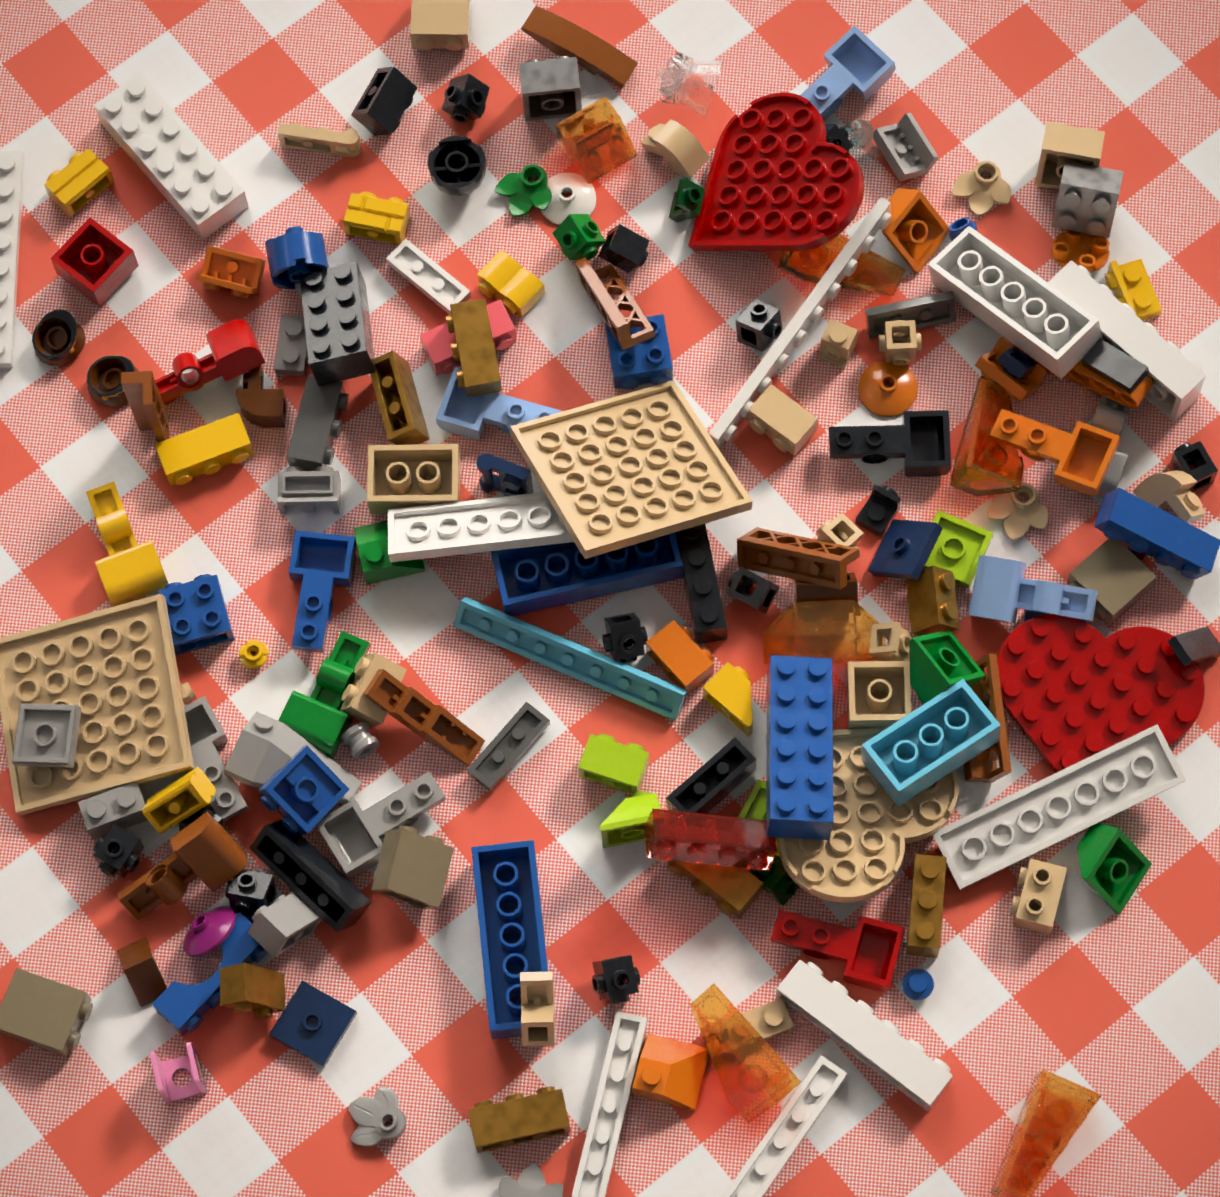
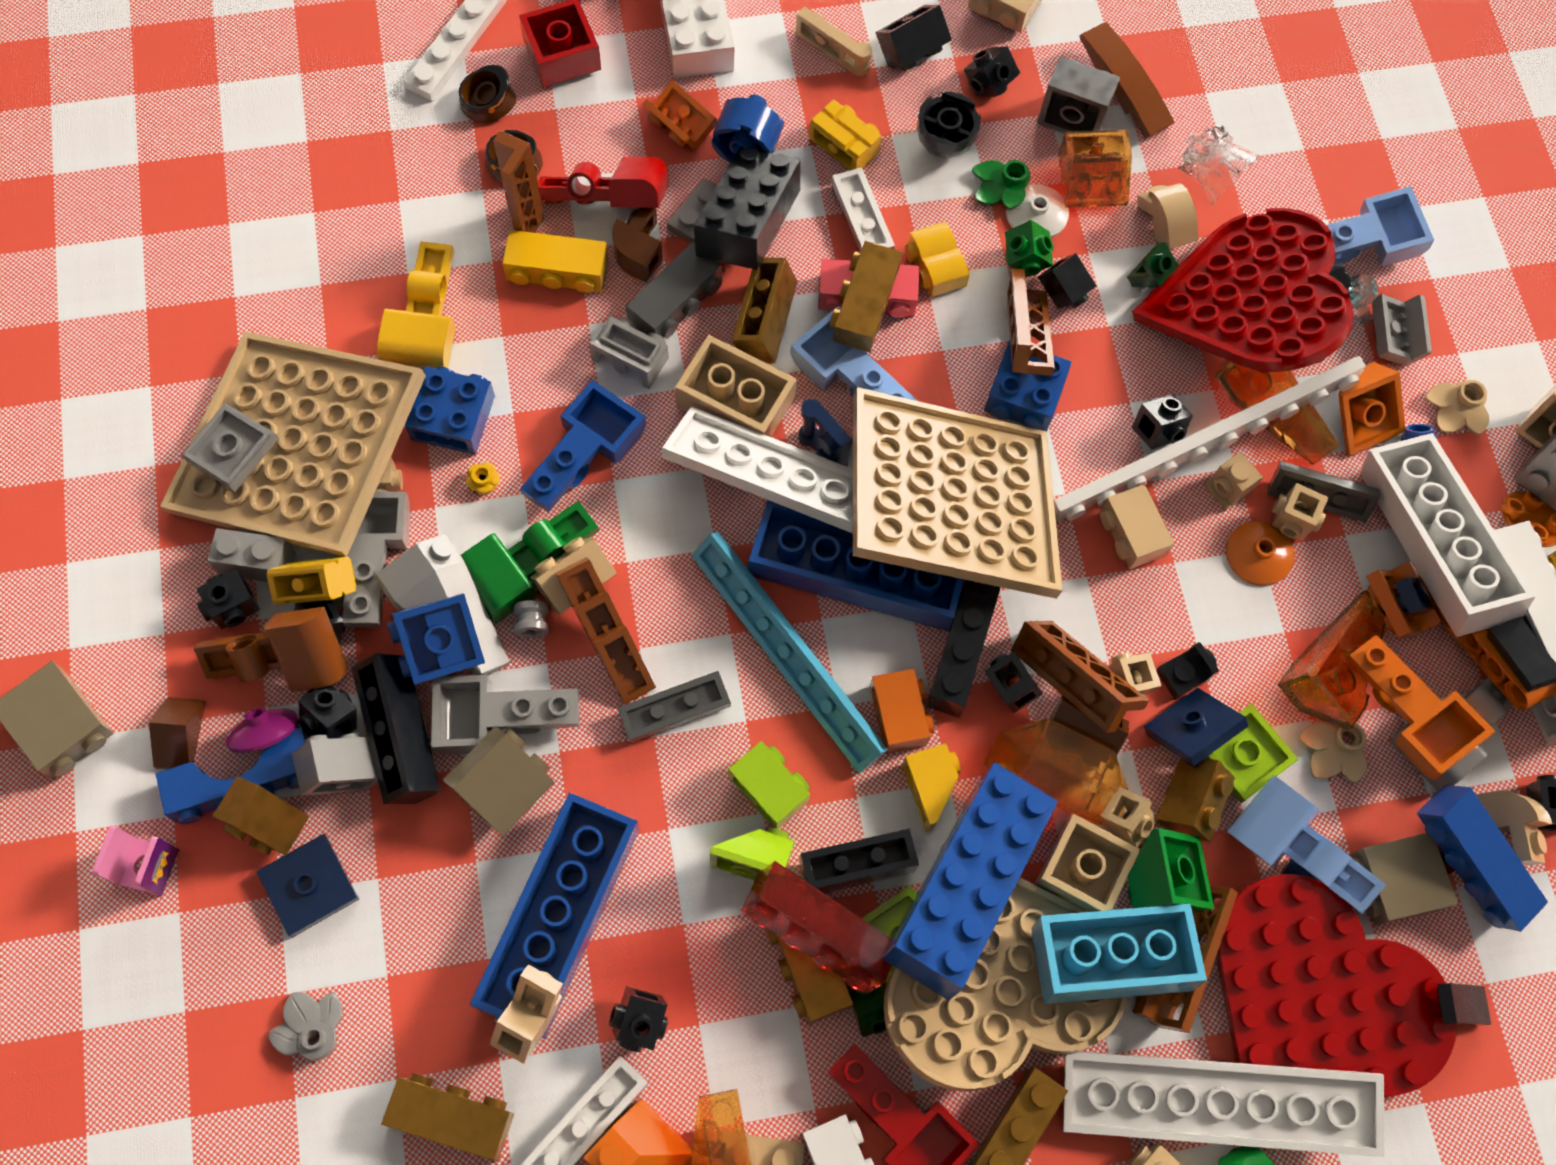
camera: 20 degrees right, 0 degrees up
(374, 557) = (648, 450): green slope -> none
(624, 637) = (854, 660): black brick -> none
(920, 441) = (1269, 622): black plate -> none

